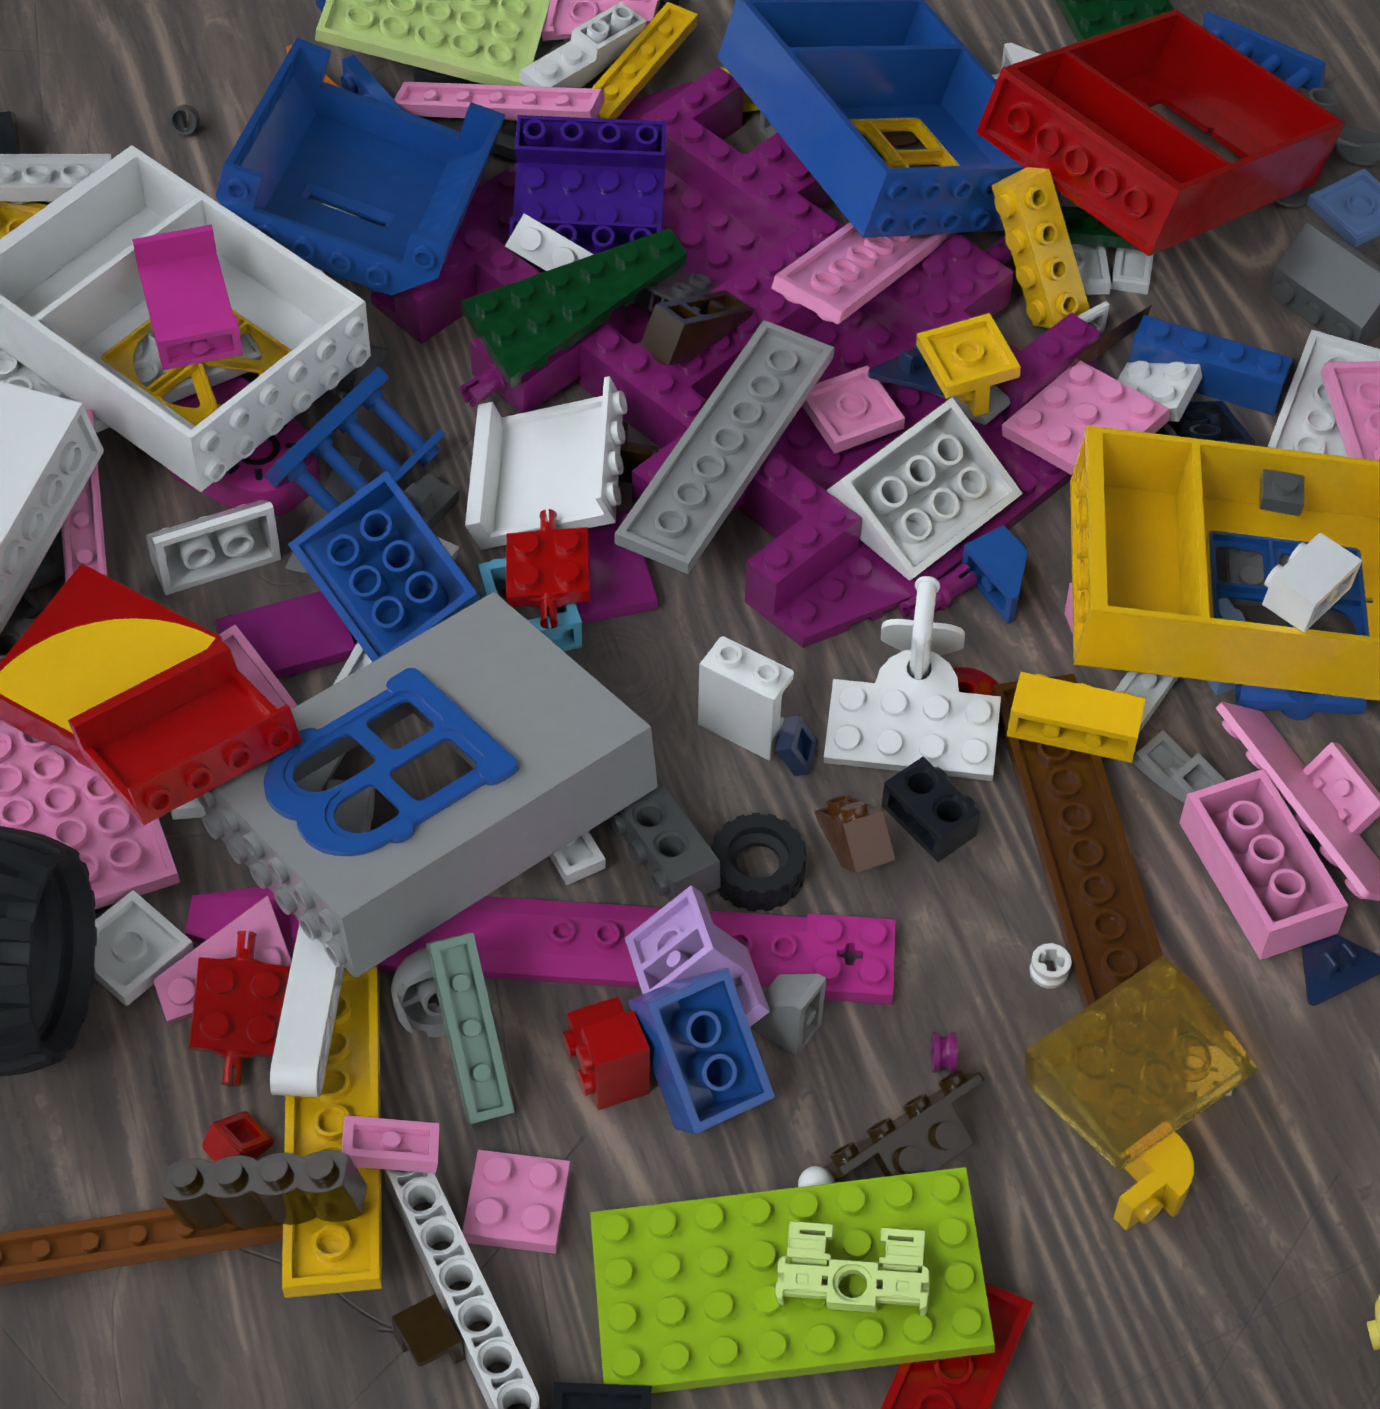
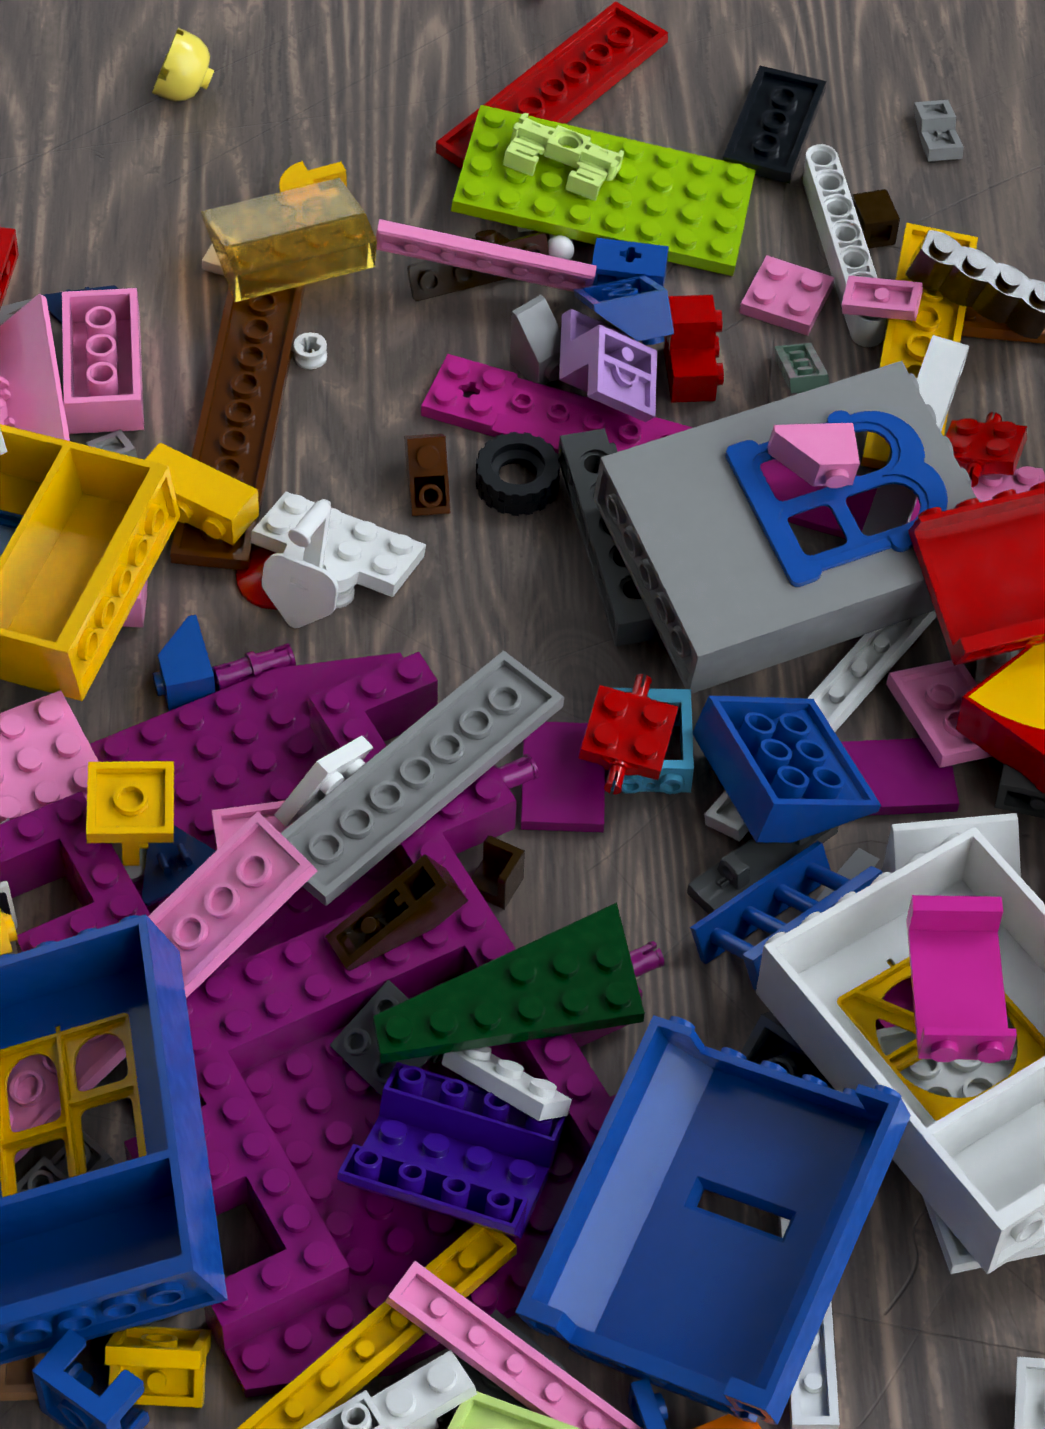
camera: 165 degrees left, 0 degrees up
(236, 1137) = (993, 380): red slope -> none
(416, 764) = (817, 452): none -> bright pink slope
(546, 460) = (590, 852): white panel -> none
(737, 1151) = (628, 259): none -> blue brick
(742, 696) = (489, 576): white panel -> none
(796, 745) = (449, 553): dark blue plate -> none
(809, 428) = (323, 778): none -> white plate
(893, 1089) = (483, 256): none -> bright pink tile
(924, 813) = (352, 476): black brick -> none
(926, 490) = (234, 736): white slope -> none
(943, 1052) = (426, 305): magenta bush -> none

